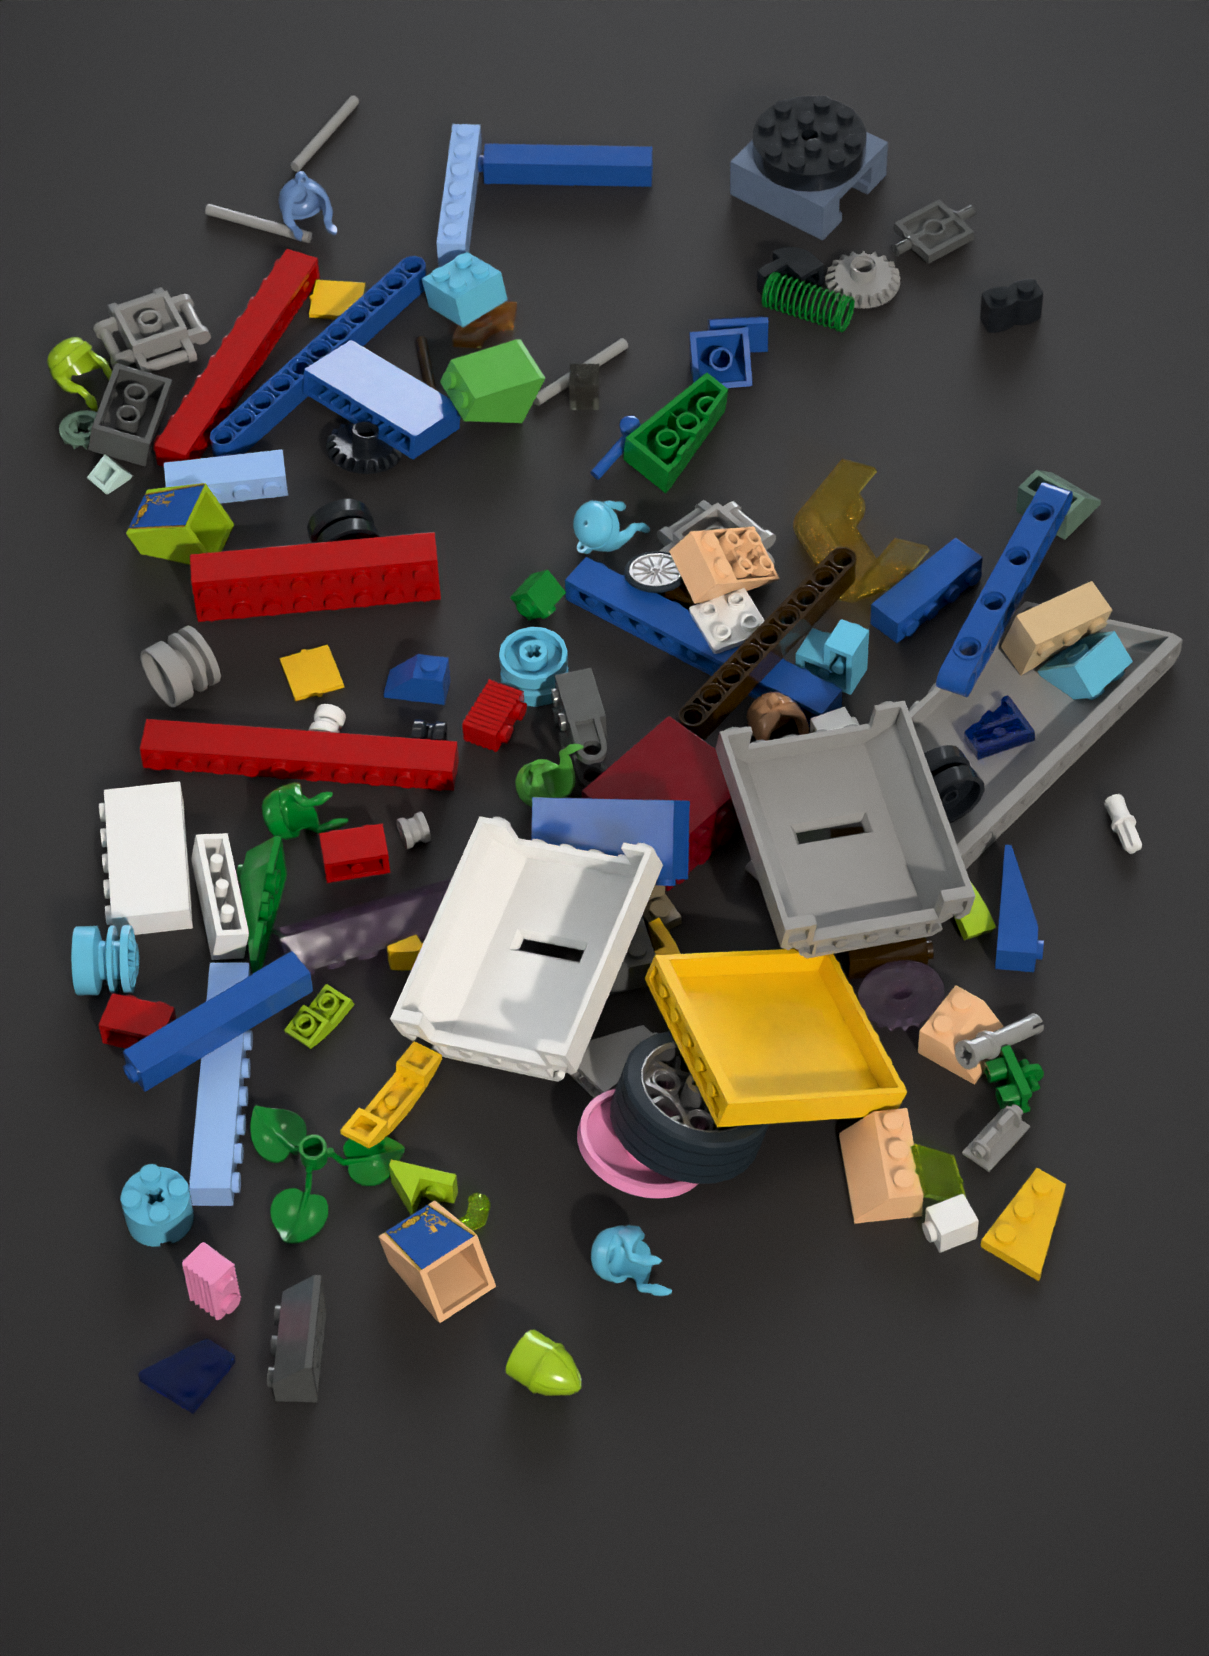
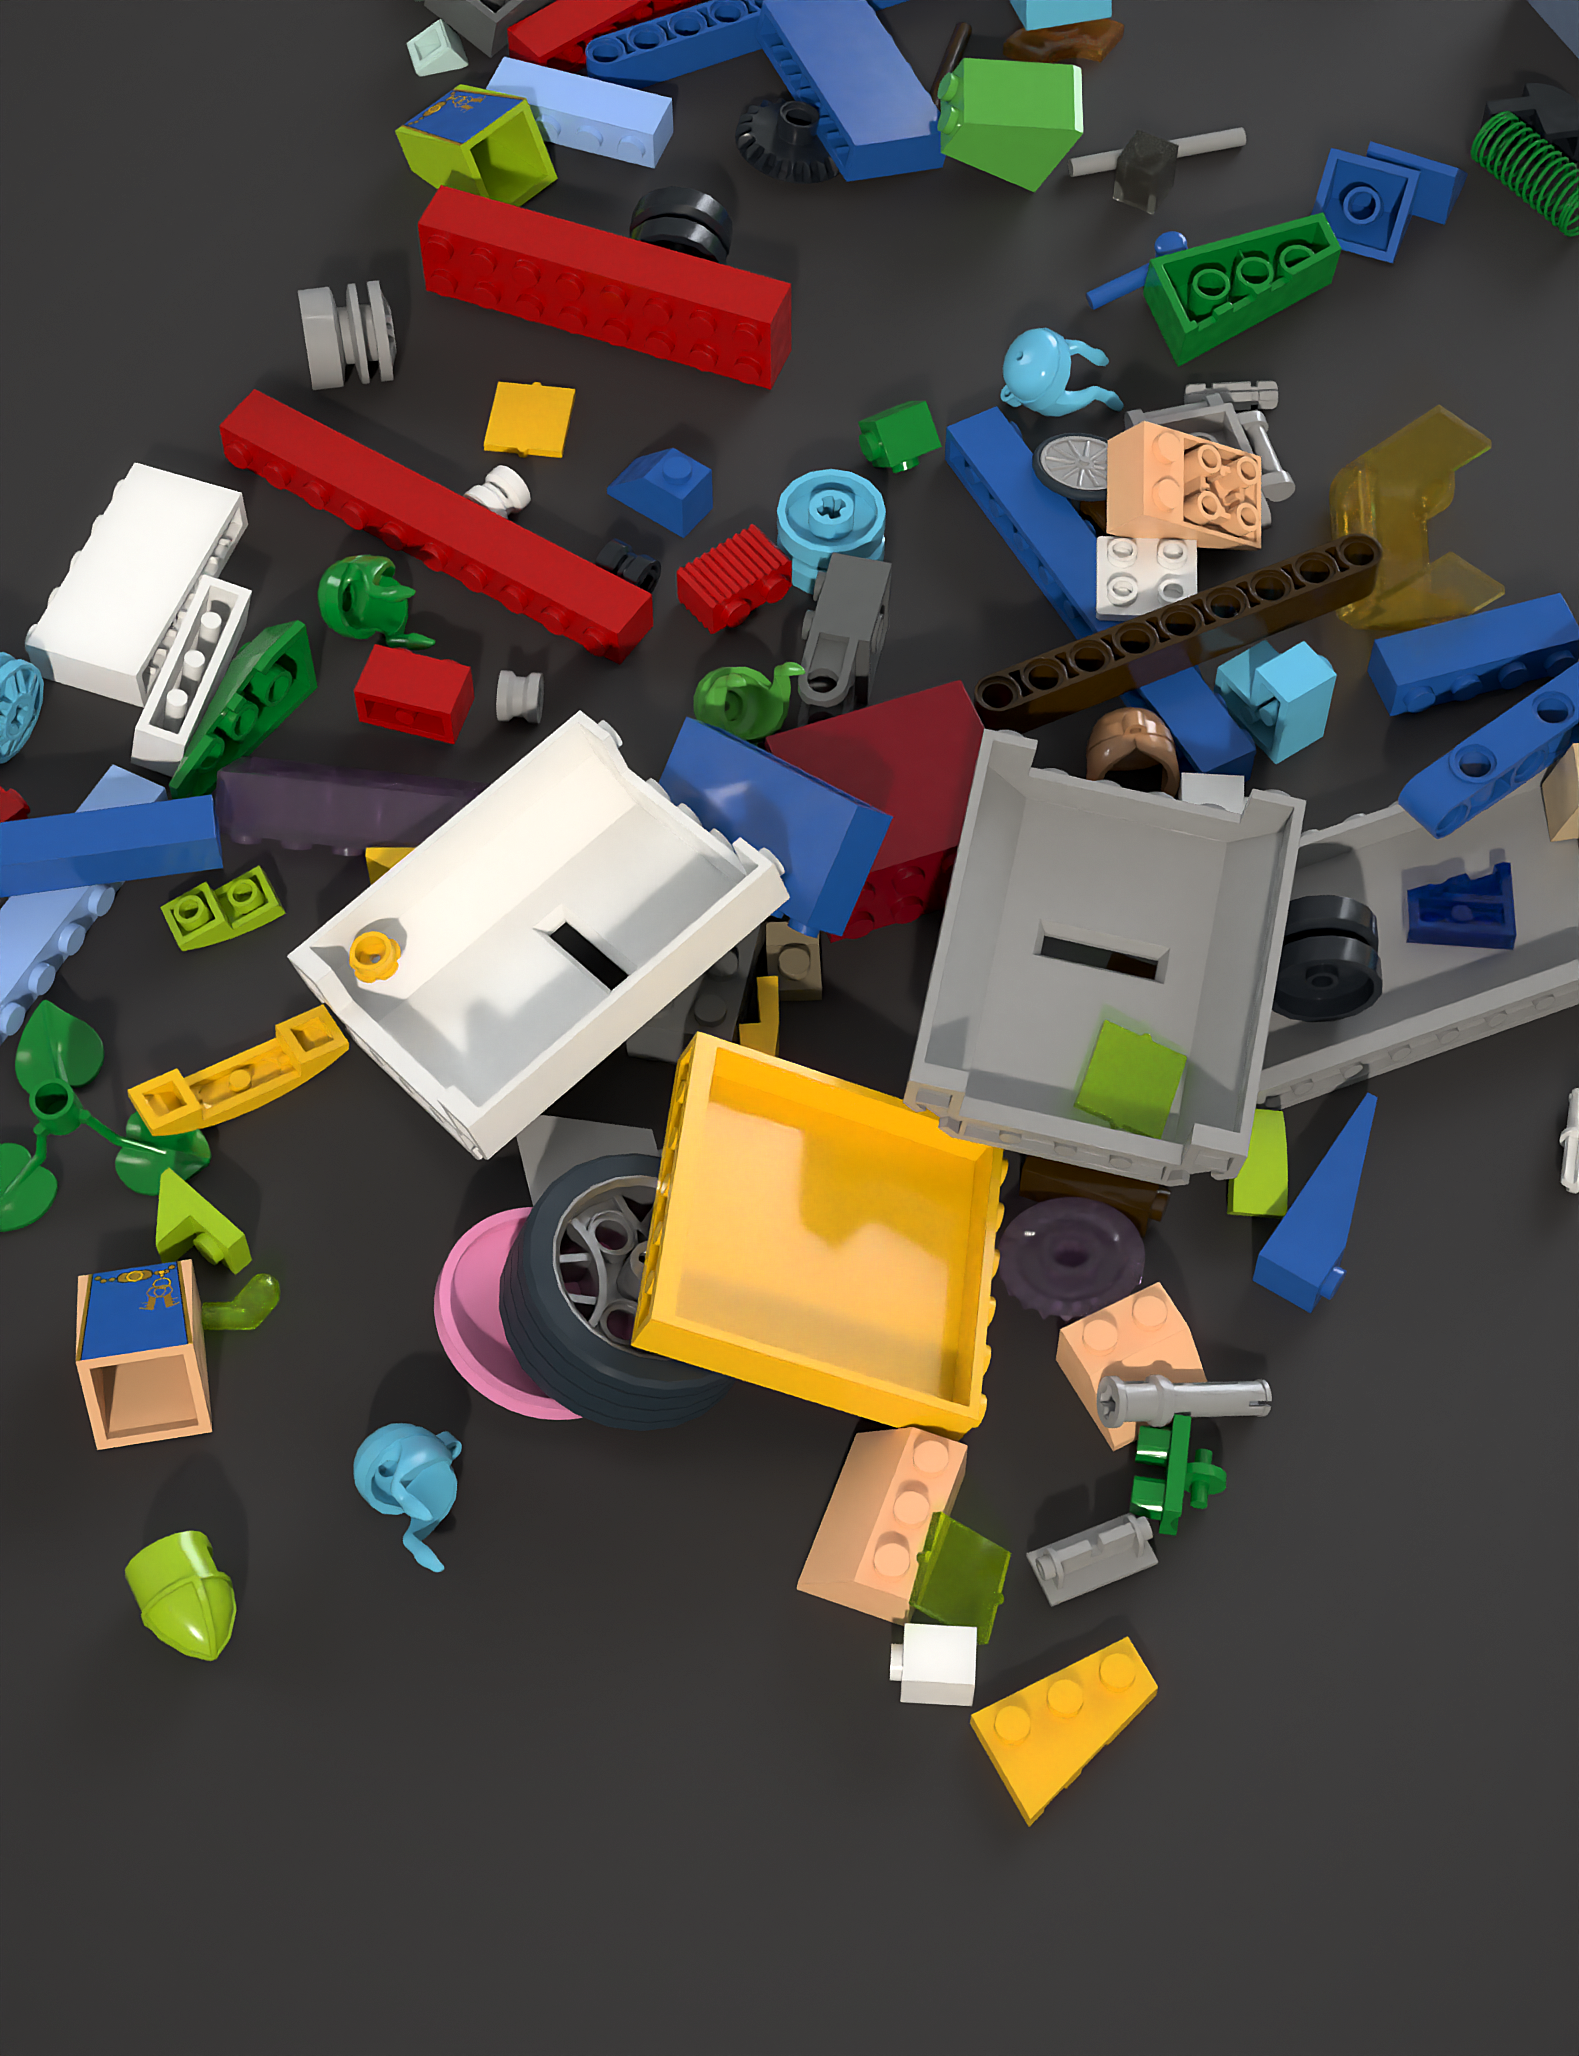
camera: 25 degrees right, 5 degrees up
(432, 993) = (368, 947): none -> yellow plate
(712, 496) = (1240, 394): none -> light grey axle
(885, 888) = (1130, 1081): none -> clear neon green piece

